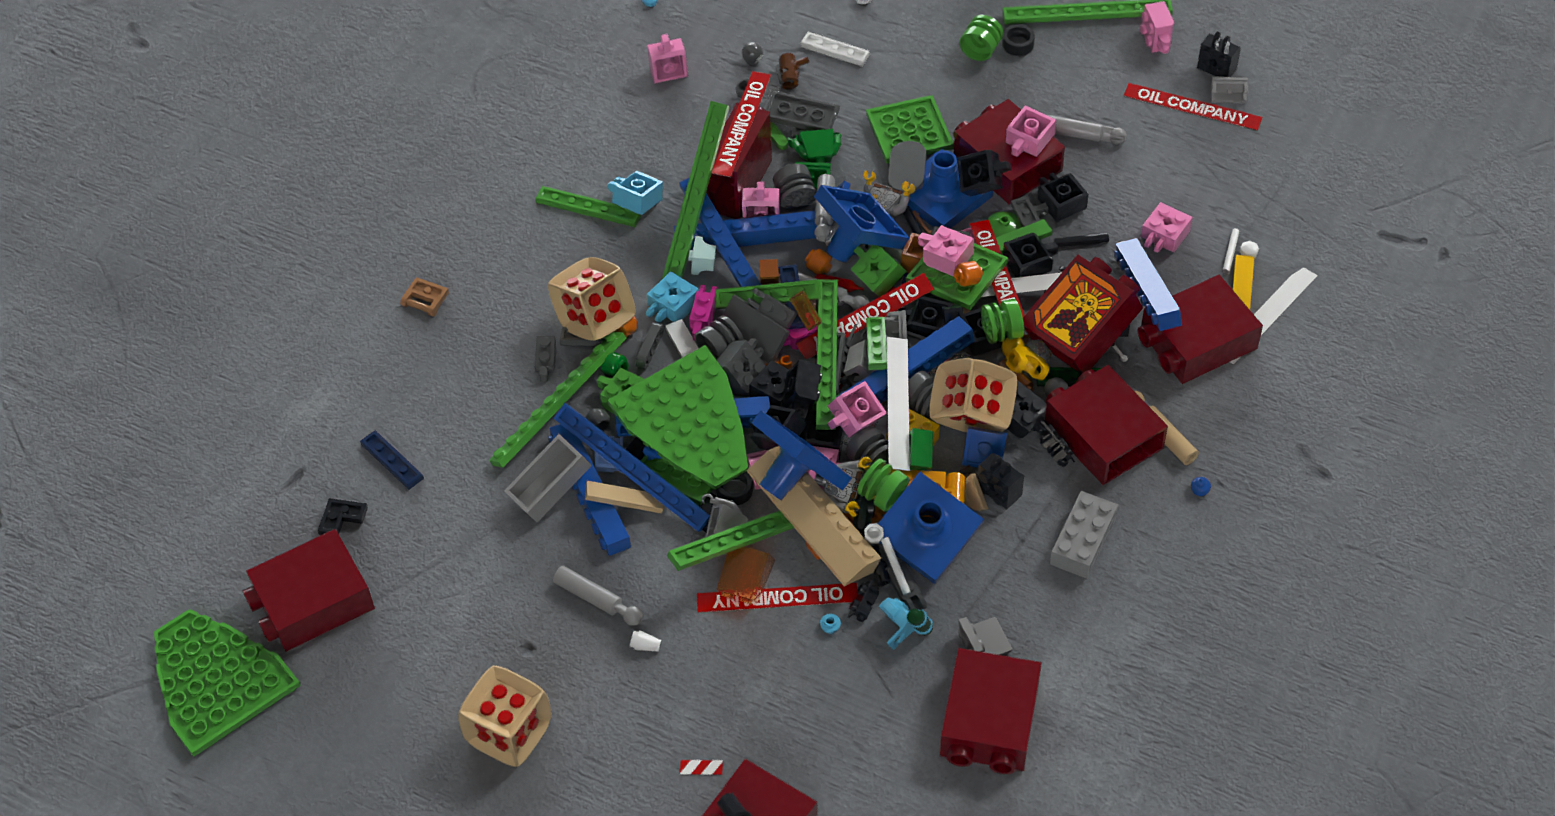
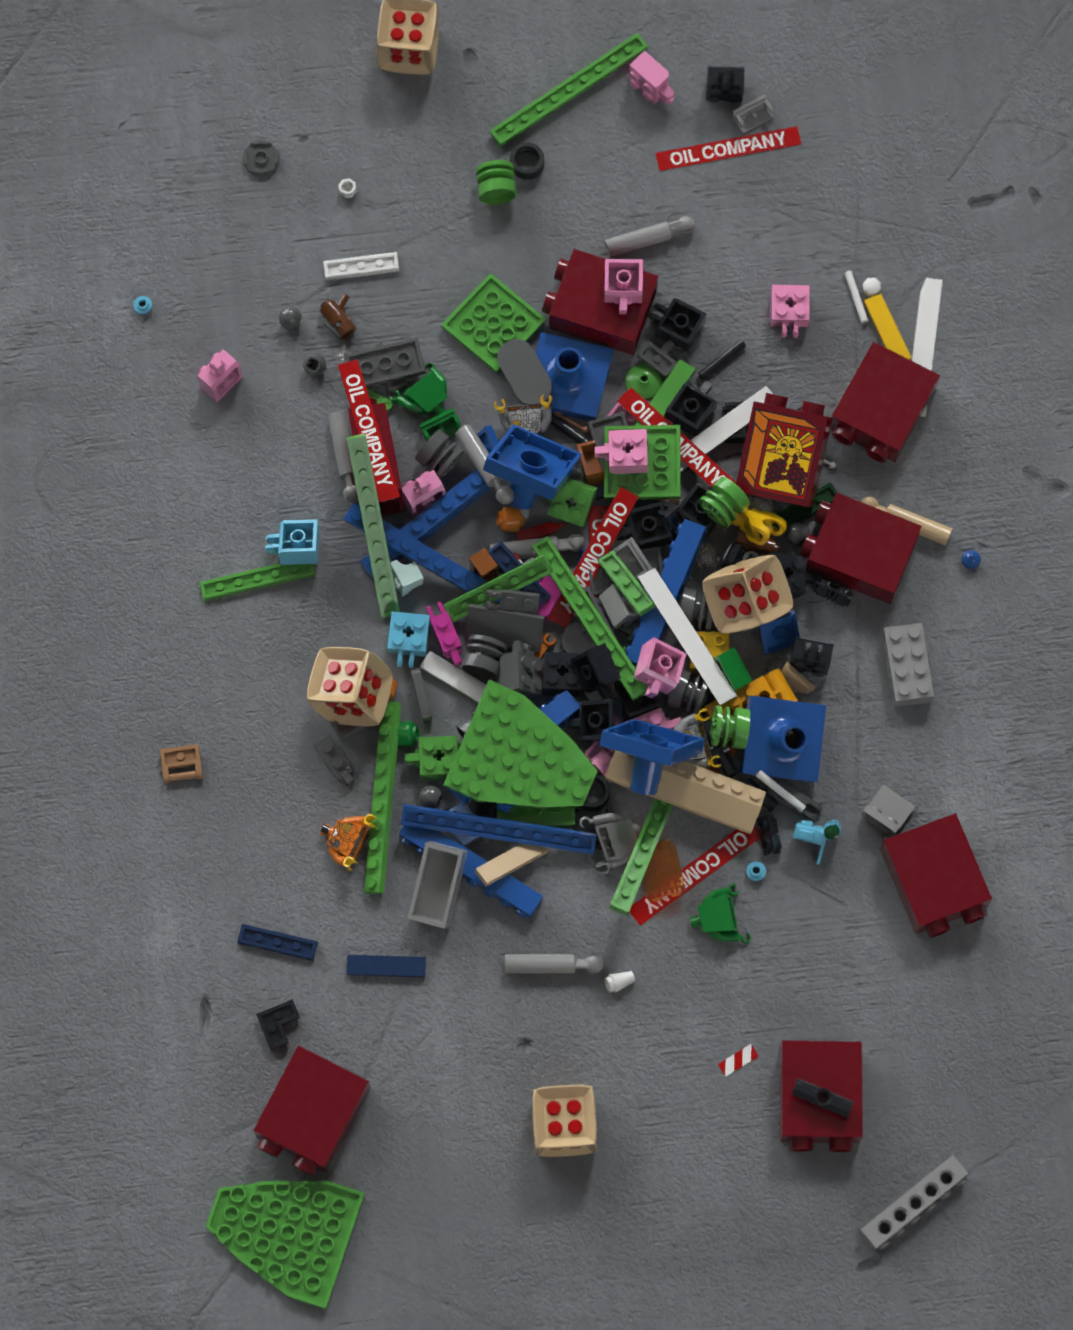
camera: 35 degrees left, 20 degrees up
(462, 524) = (386, 966): none -> dark blue tile
(507, 413) = (347, 838): none -> torso
(769, 636) = (719, 917): none -> green torso
(805, 310) = (548, 589): clear orange tile -> none
(873, 533) = (747, 774): white tile -> none
(968, 273) = (661, 466): orange head -> none
(981, 172) = (613, 345): black hinge -> none
(1152, 291) = (819, 387): brick -> none

